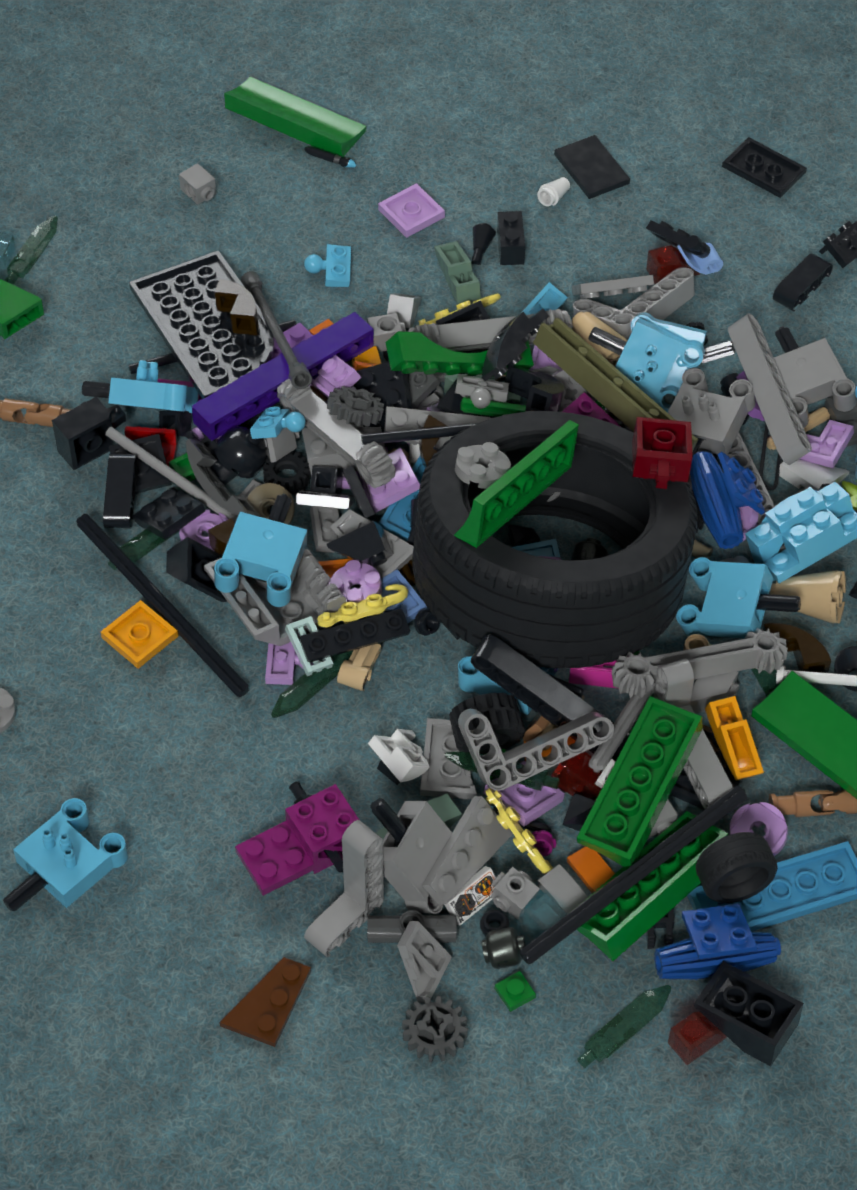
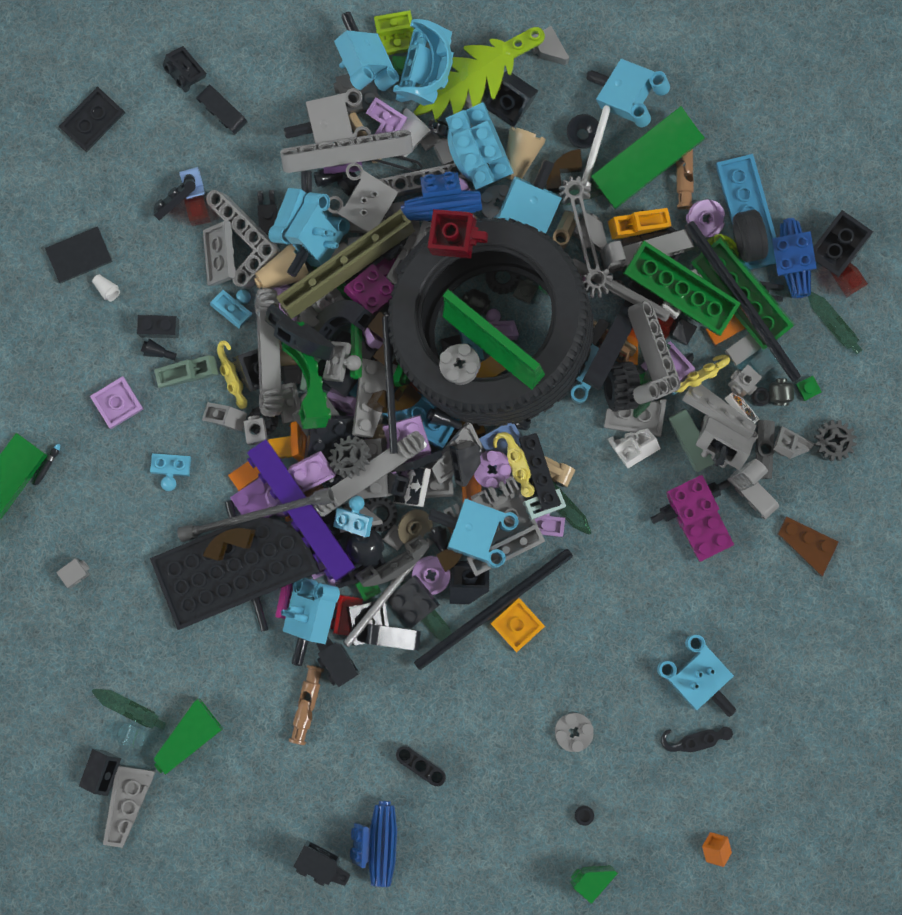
camera: 90 degrees left, 30 degrees up
(548, 842) = (703, 359): magenta plate -> none

